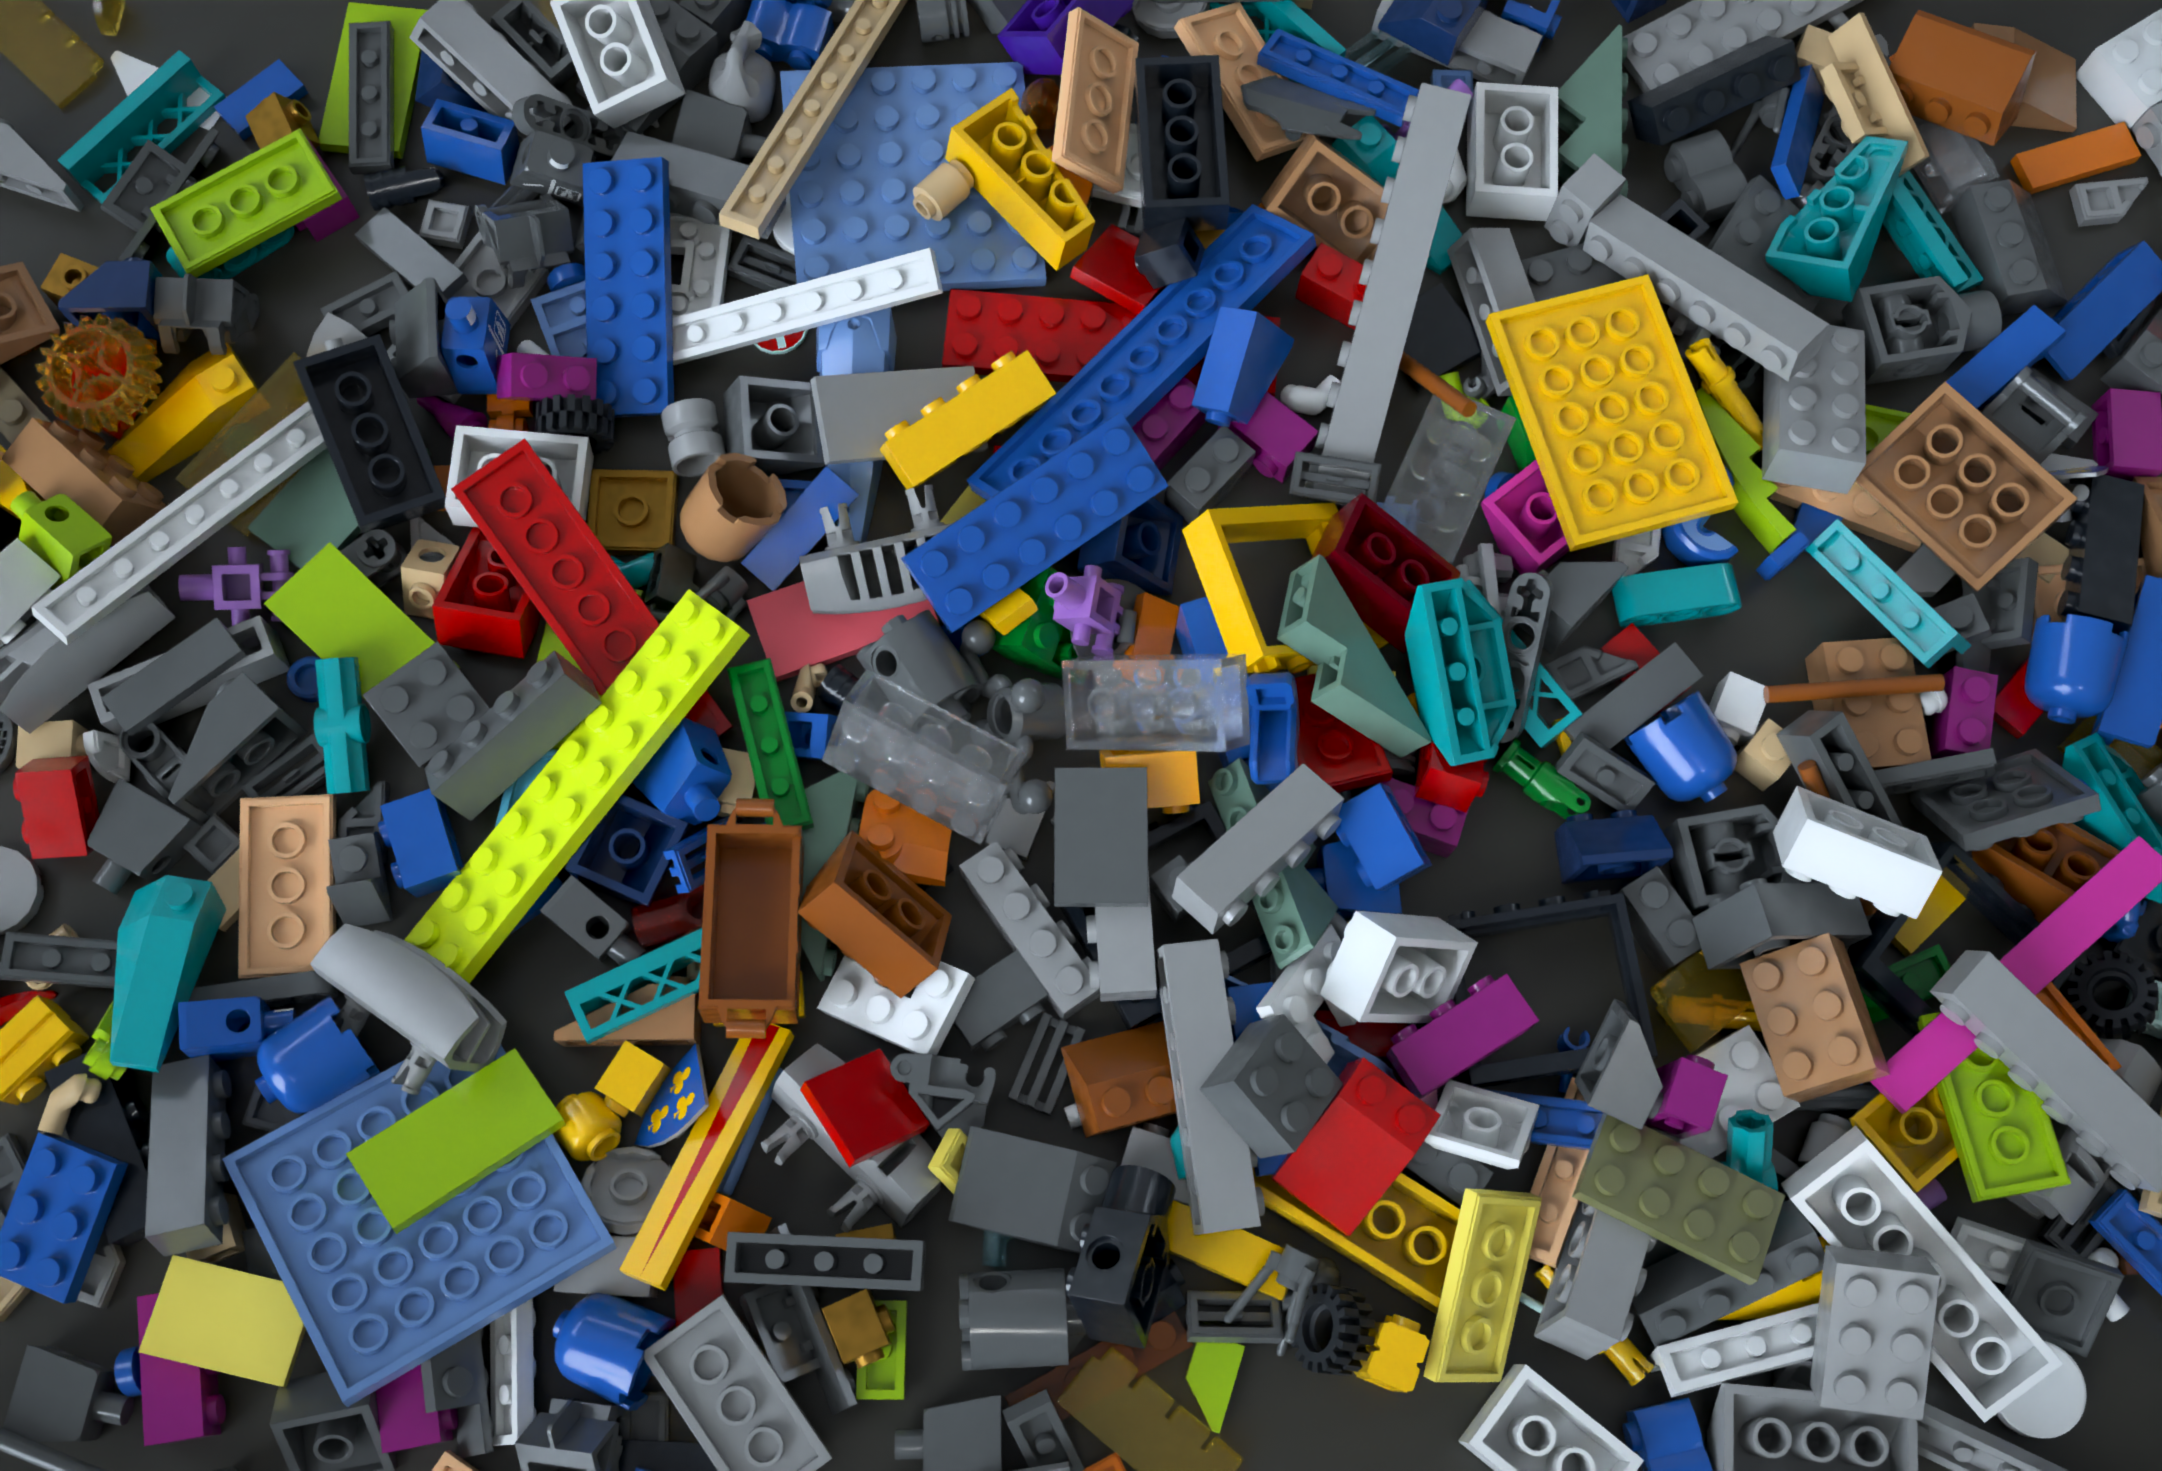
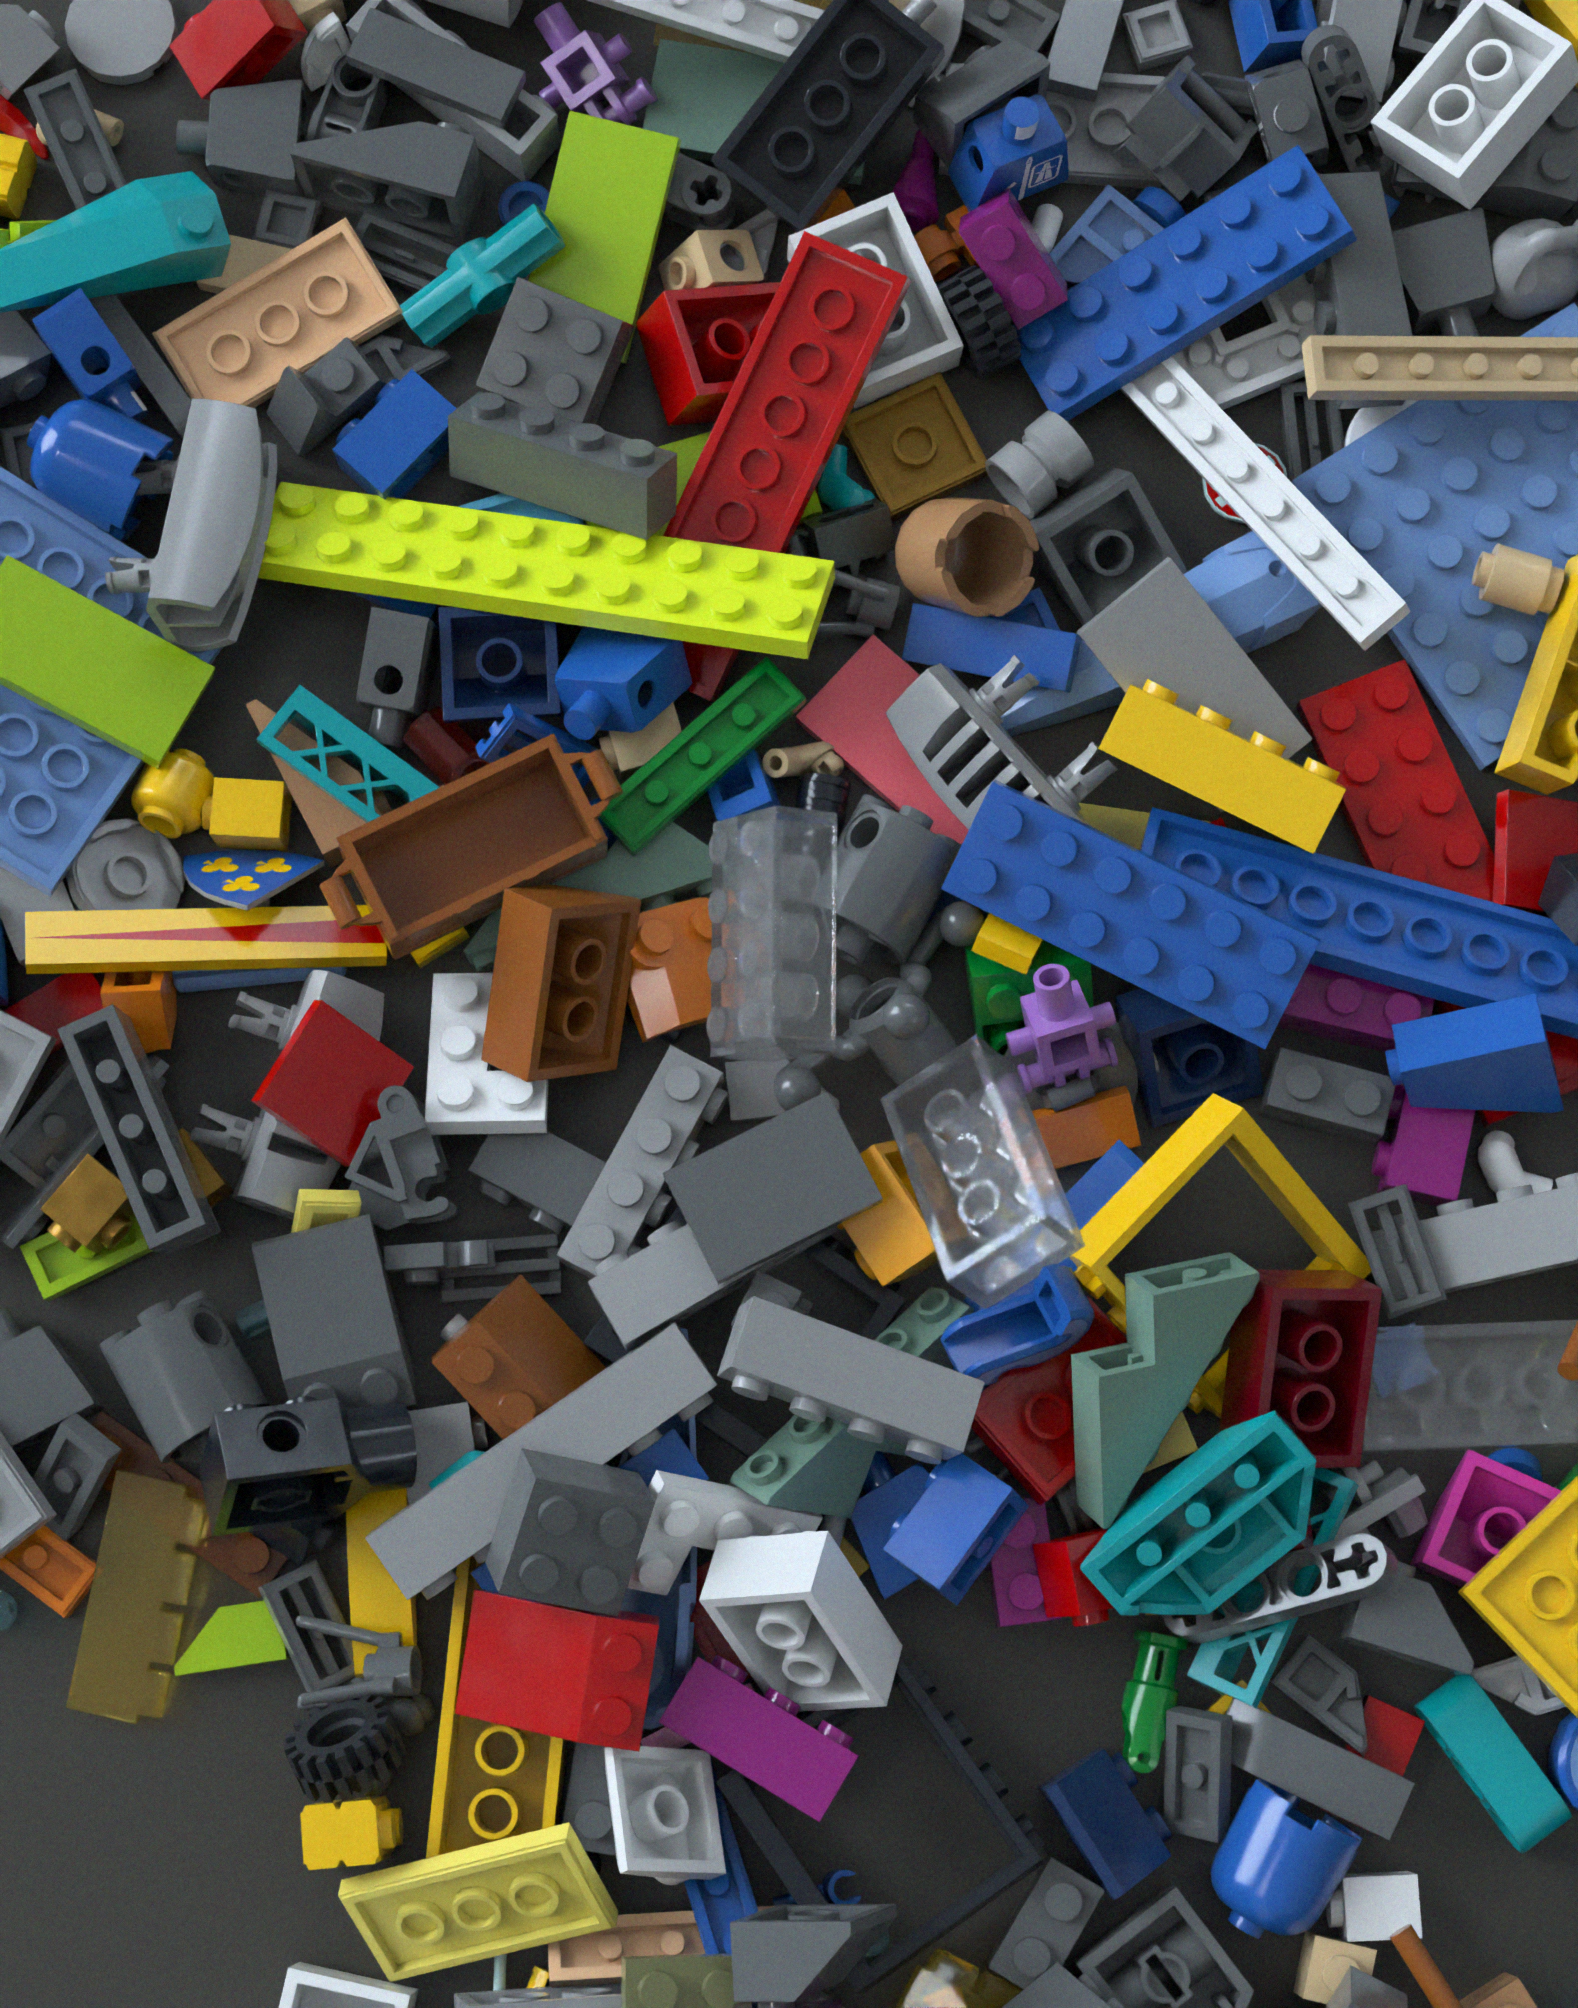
camera: 70 degrees right, 5 degrees up
(1020, 1110) = (424, 1261): none -> dark grey plate

